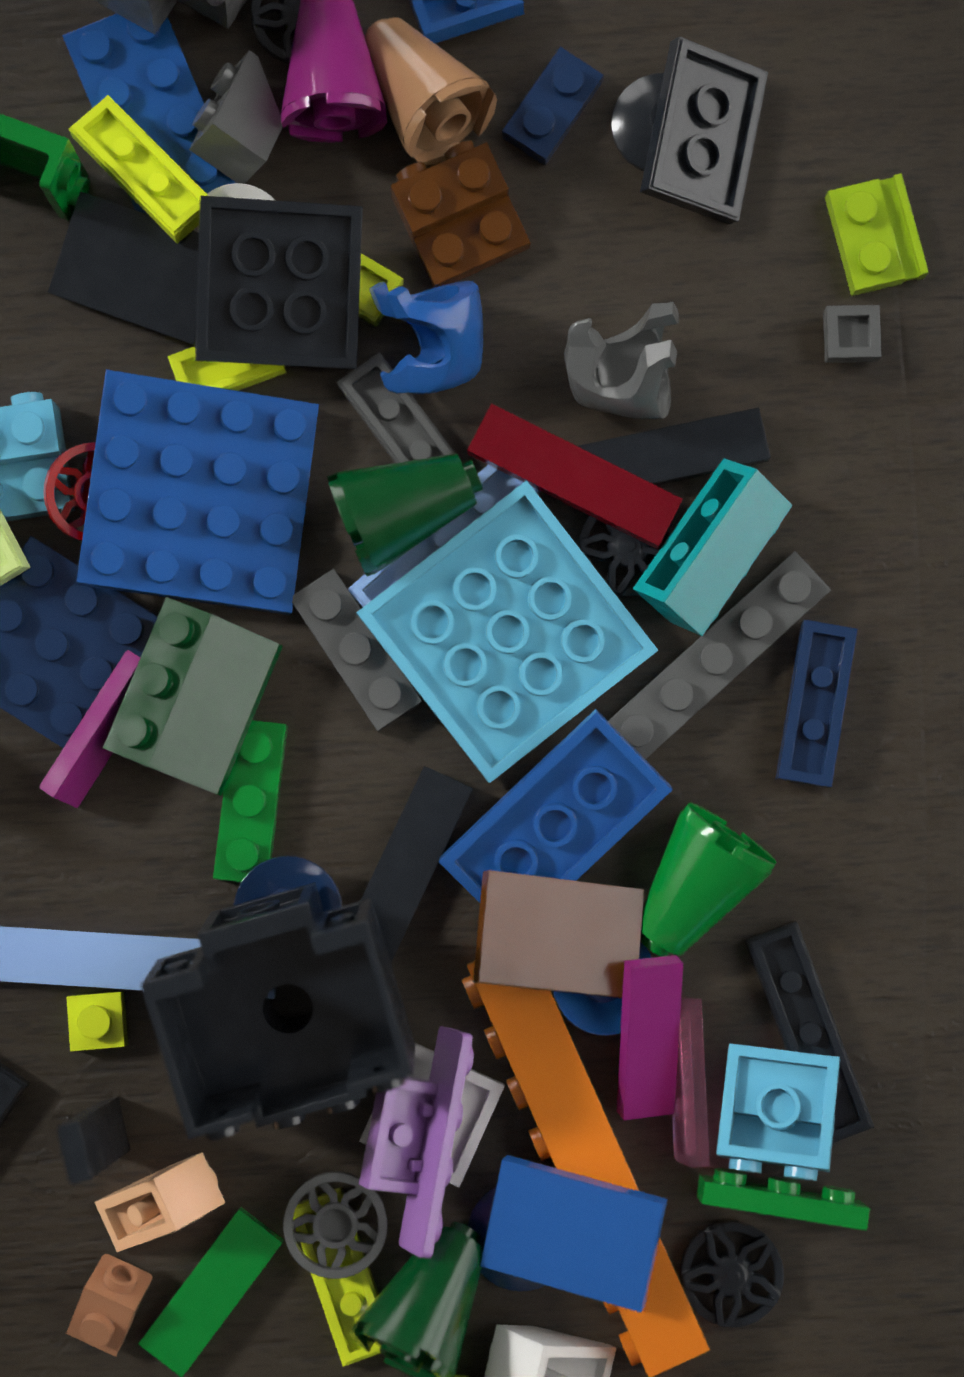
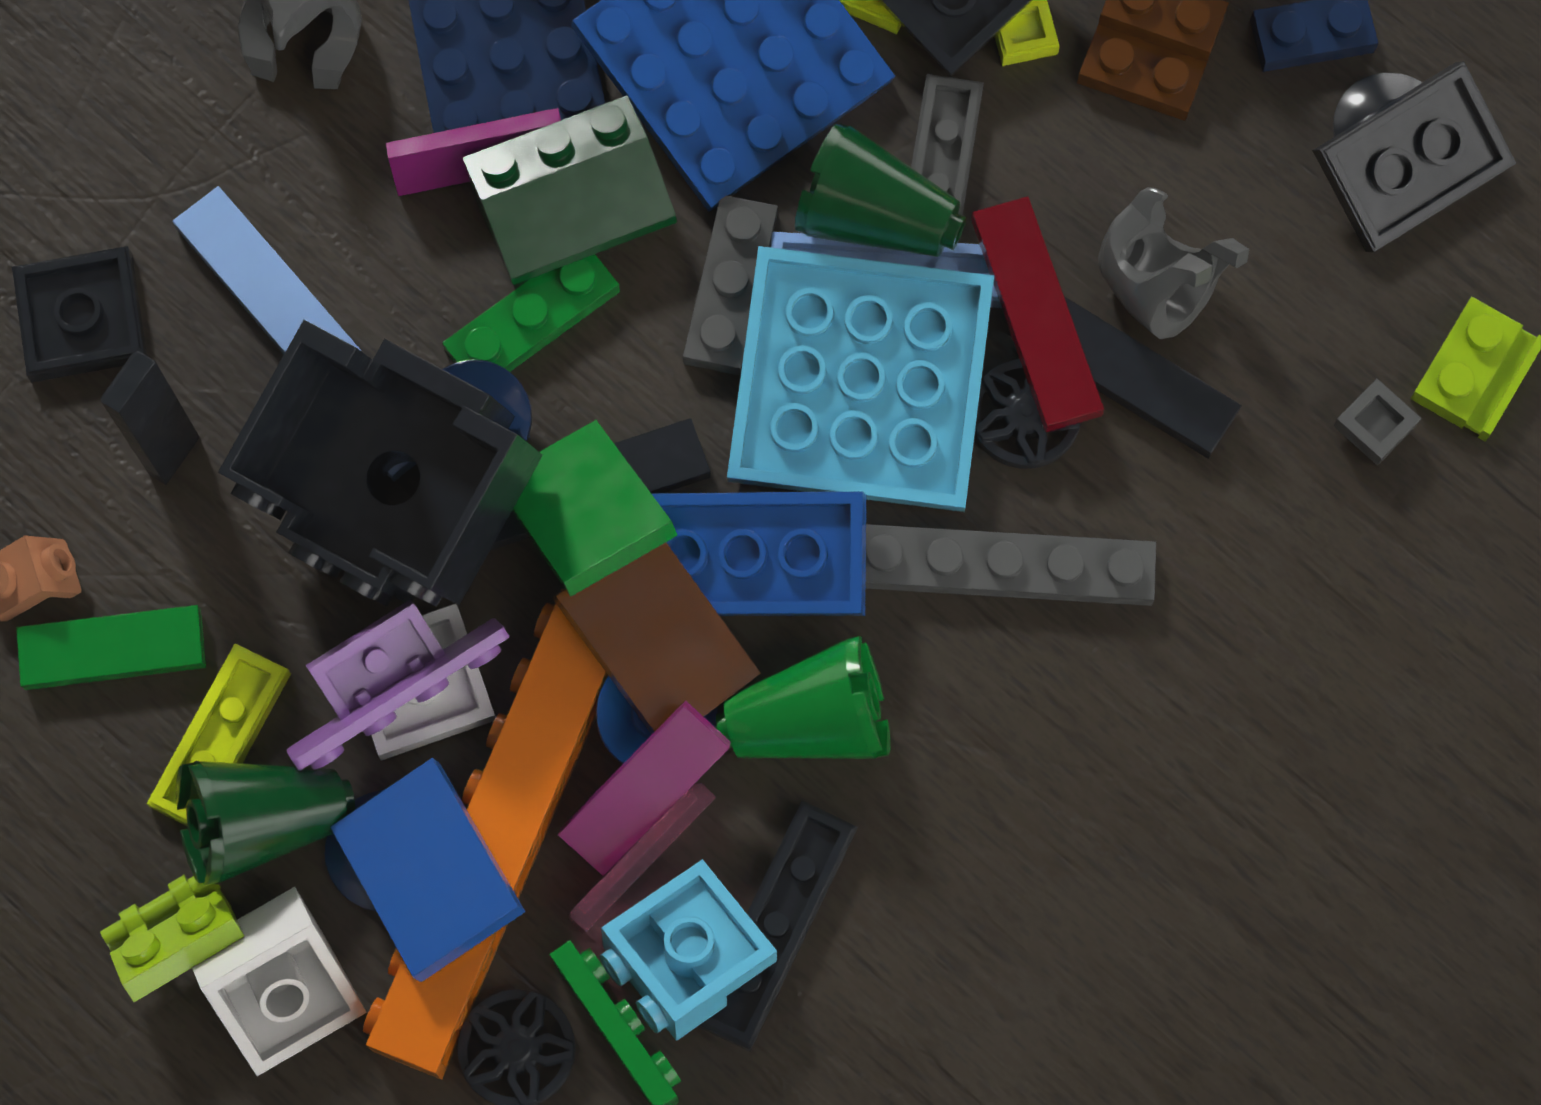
camera: 50 degrees right, 10 degrees down
(97, 1021) = (243, 362): neon yellow plate -> none
(160, 1202) = (147, 537): light nougat slope -> none
(335, 1225) = (255, 686): dark grey wheel -> none
(436, 900) = (589, 509): none -> green tile
(448, 331) = (1052, 117): blue piece -> none
(713, 546) = (1091, 470): teal brick -> none
(816, 704) = (1049, 675): dark blue plate -> none

